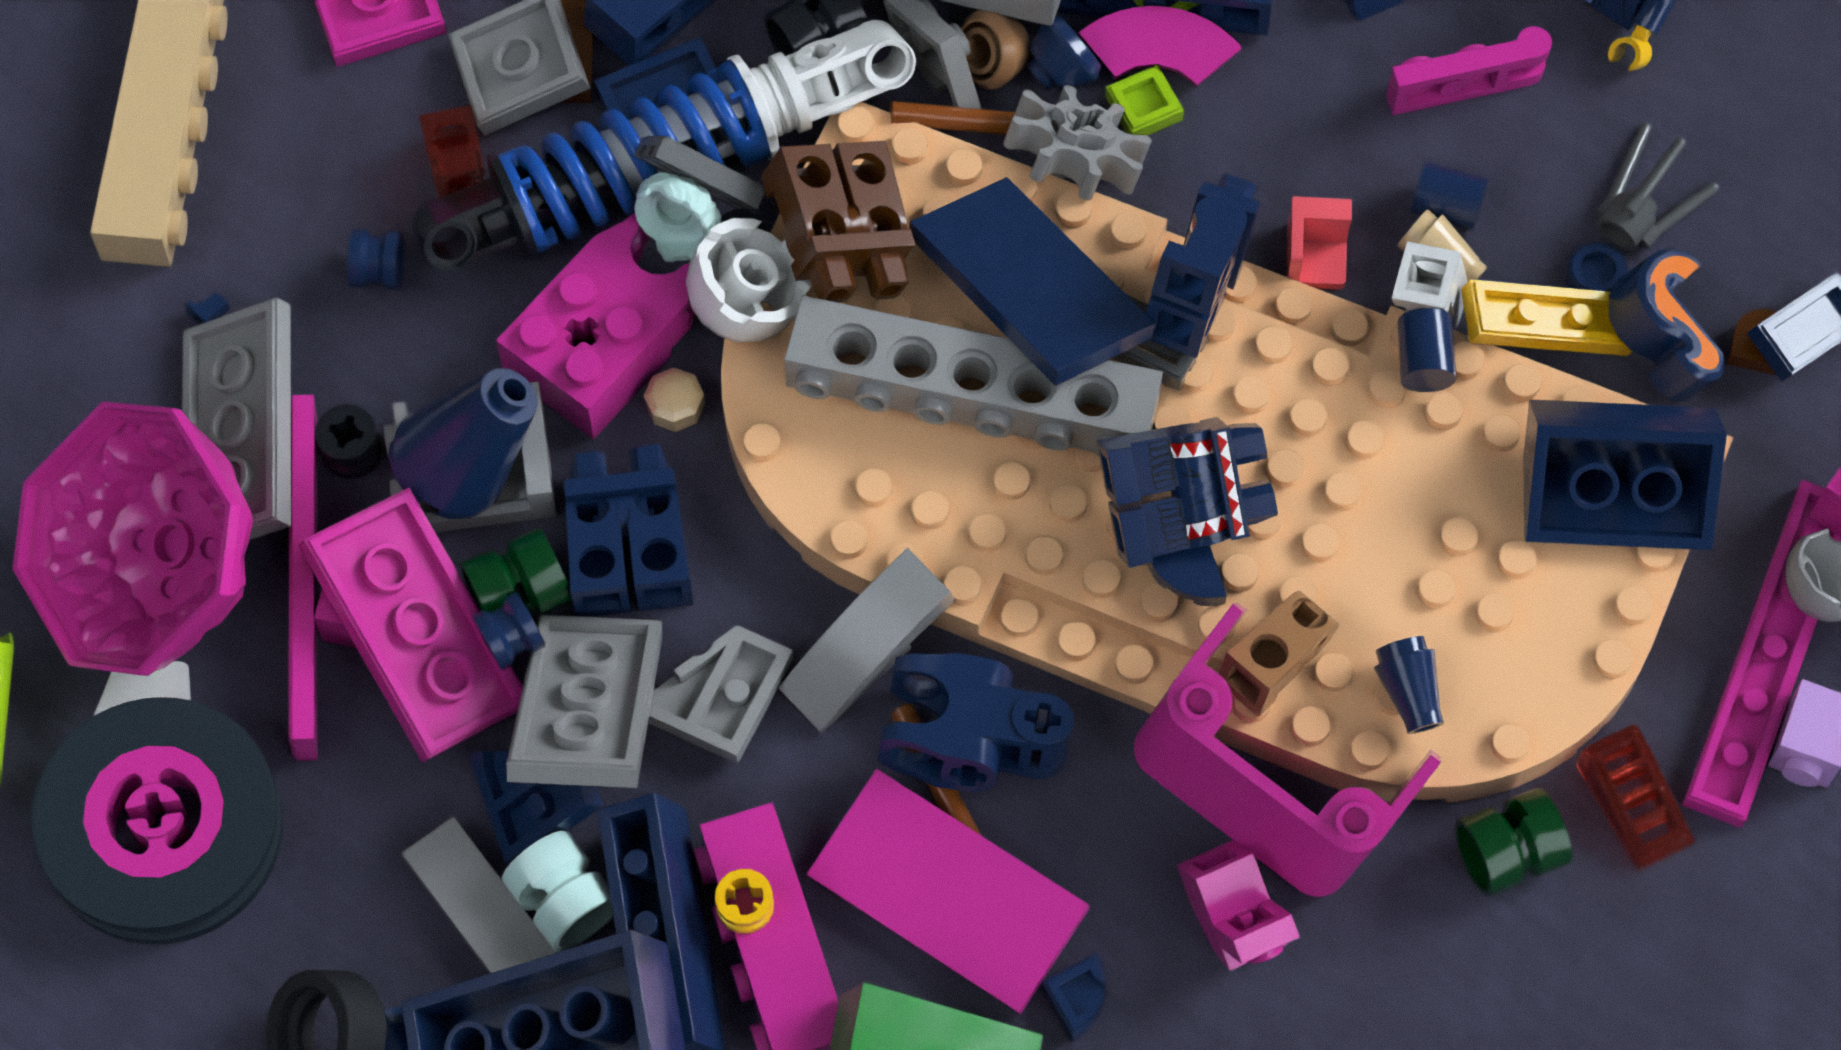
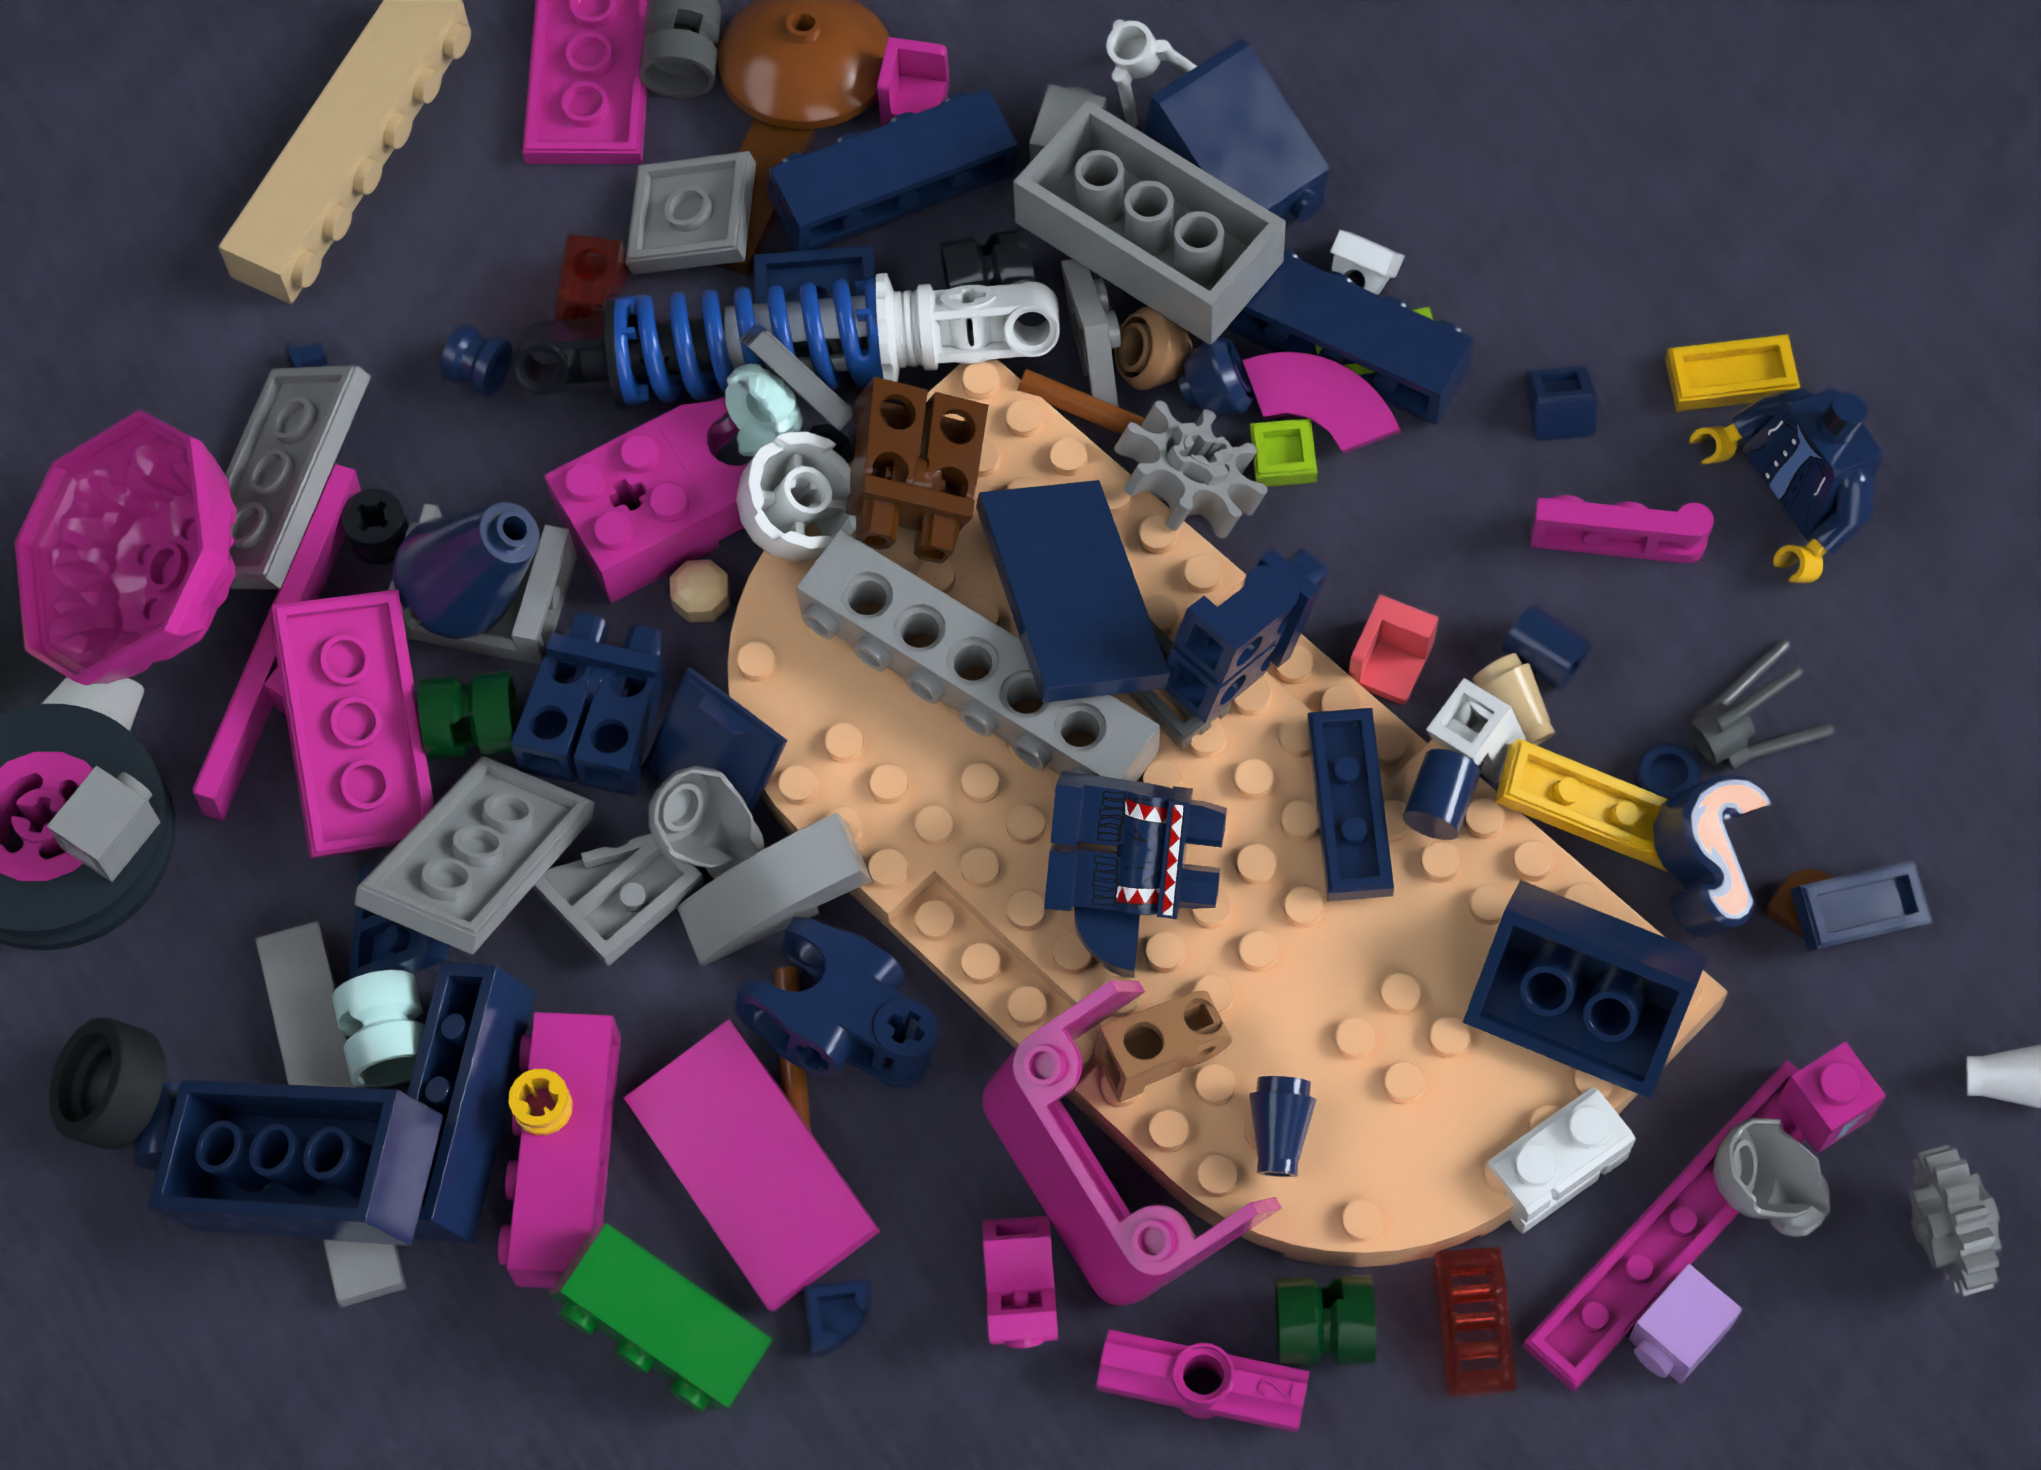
camera: 25 degrees right, 0 degrees up
(225, 793) = (105, 821): none -> light grey brick
(508, 630) = (432, 760): dark blue wheel -> none
(758, 539) = (715, 733): none -> dark blue piece
(779, 601) = (703, 820): none -> light grey hair
(1348, 387) = (1350, 804): none -> dark blue tile
(1469, 925) = (1157, 1369): none -> dark pink piece
(1655, 627) = (1561, 1157): none -> white brick

